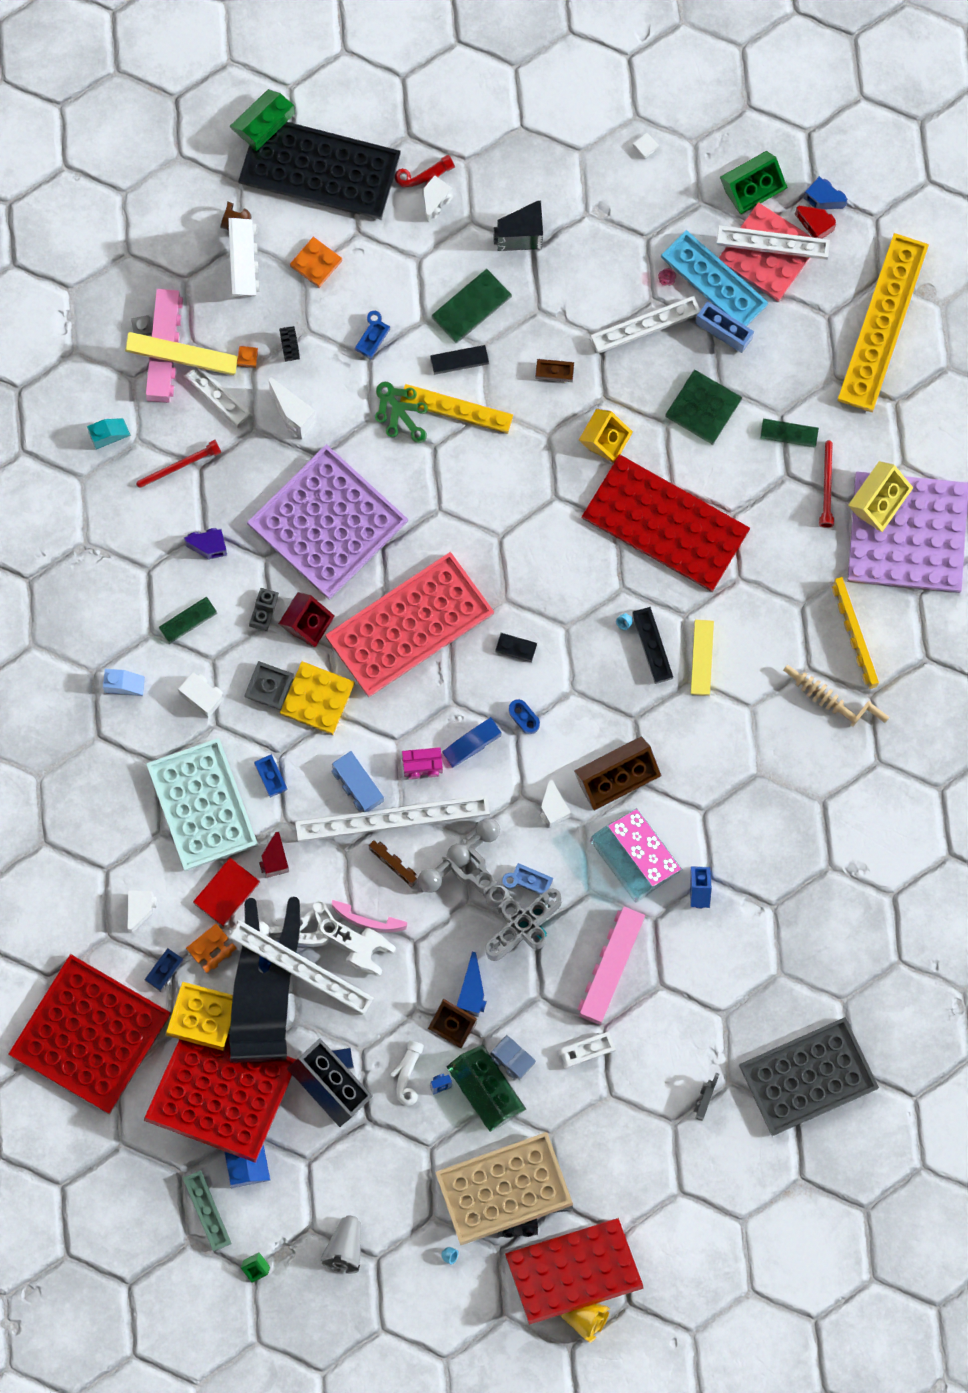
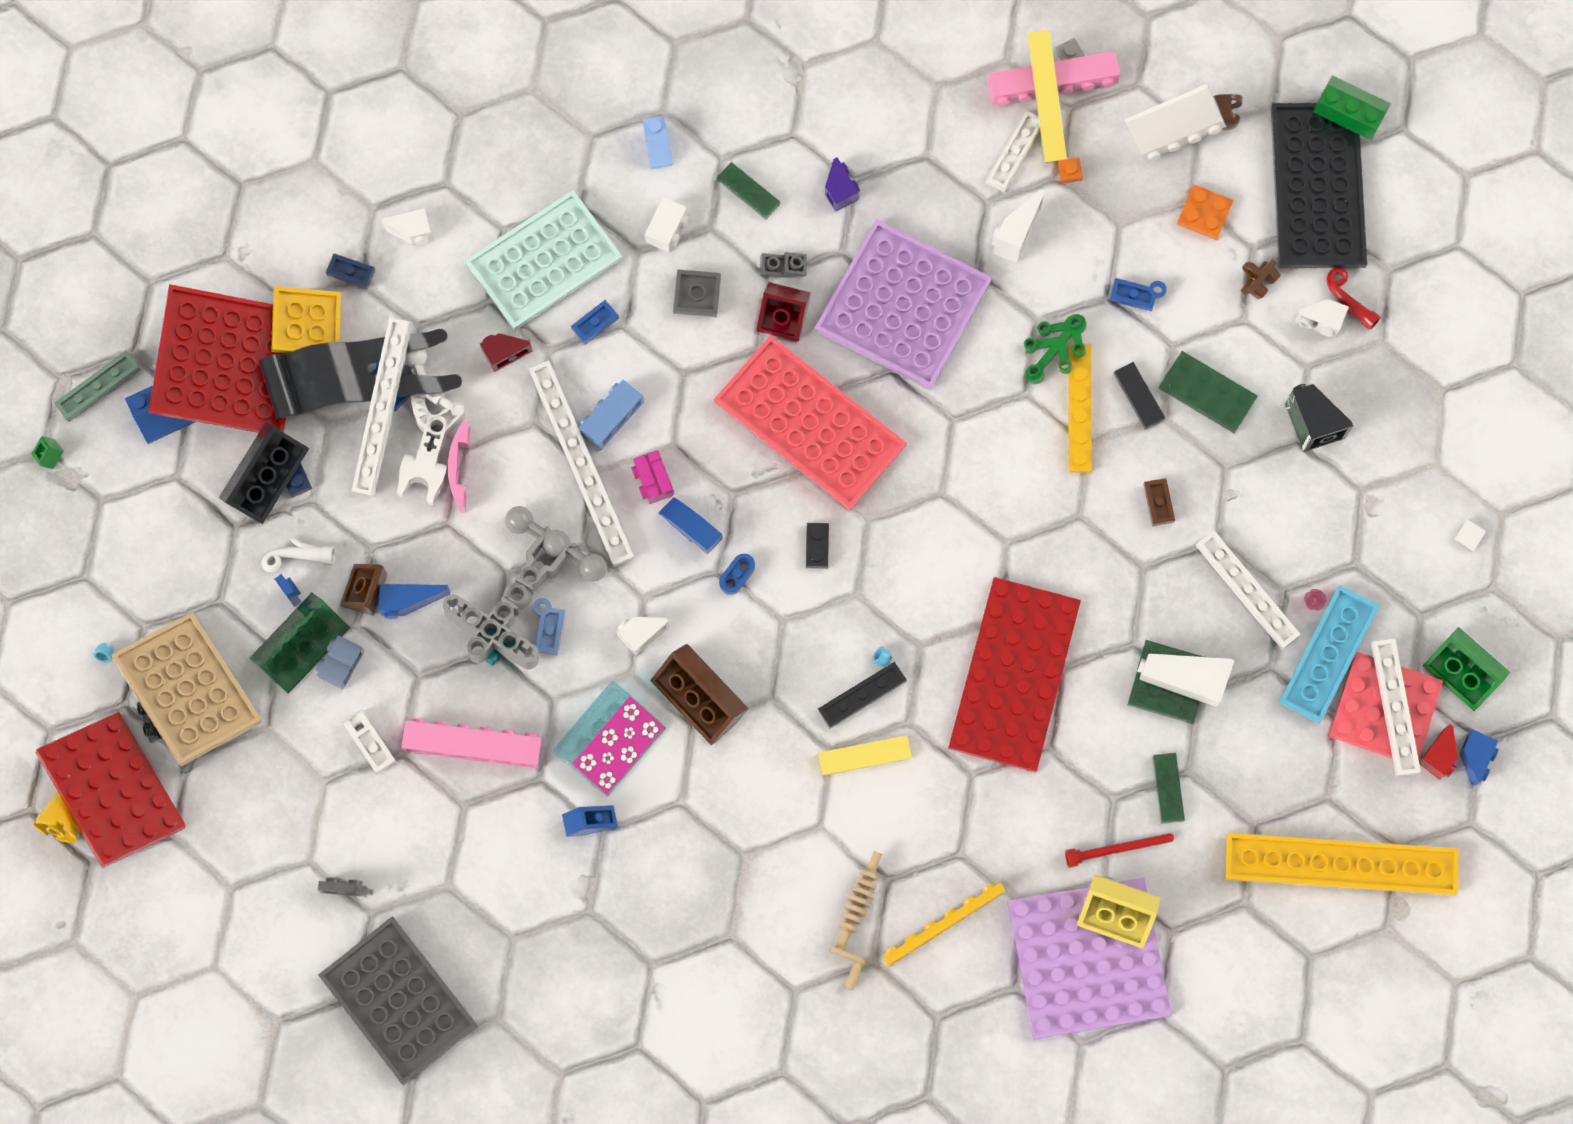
camera: 80 degrees right, 0 degrees up
(89, 1034) = (262, 216): red plate -> none
(107, 432) = (936, 49): teal slope -> none
(207, 944) = (388, 306): orange plate -> none
(211, 449) = (950, 161): red piece -> none
(226, 892) = (454, 312): red tile -> none
(289, 343) = (1096, 206): black tyre -> none
(317, 698) = (698, 348): yellow plate -> none
(344, 1246) = (88, 536): light grey cone -> none
(385, 237) = (1257, 275): none -> reddish brown hips
(393, 862) = (530, 476): reddish brown plate -> none
(605, 435) = (1098, 578): yellow slope -> none
(709, 385) = (1188, 675): none -> white slope
(724, 327) = (1272, 678): medium blue brick -> none

